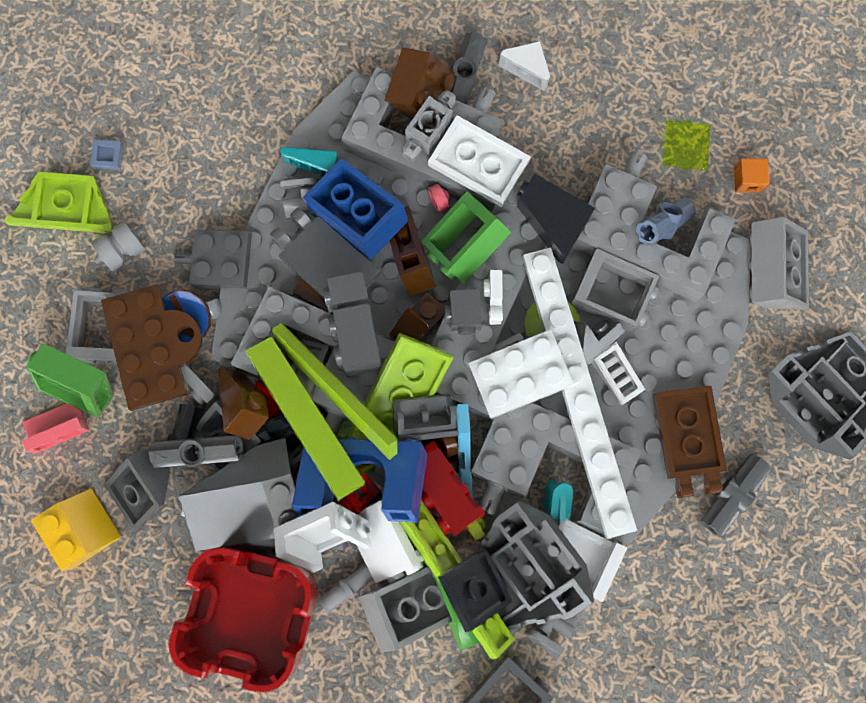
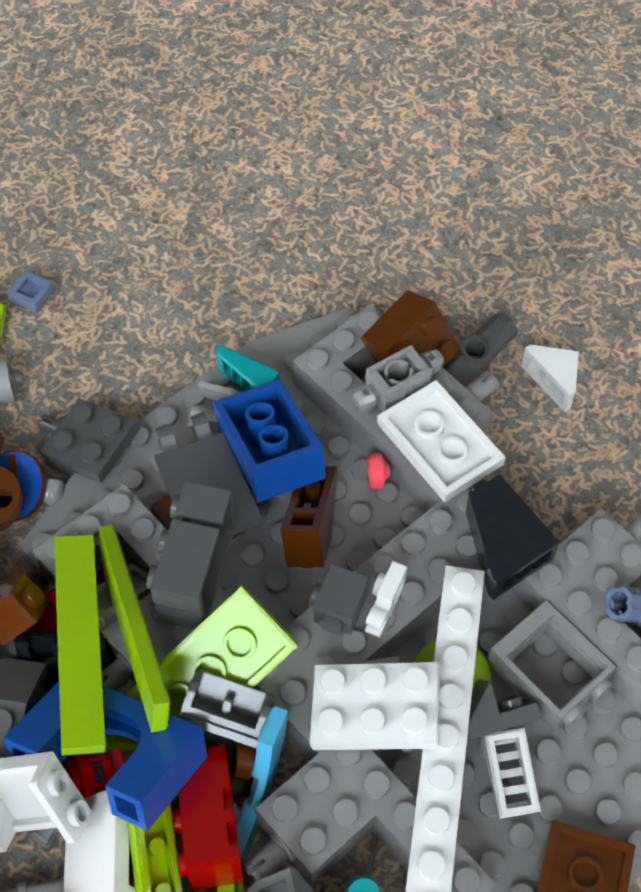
camera: 30 degrees right, 20 degrees down
(419, 319) = (286, 598): reddish brown slope -> none
(476, 250) = (382, 521): bright green window -> none

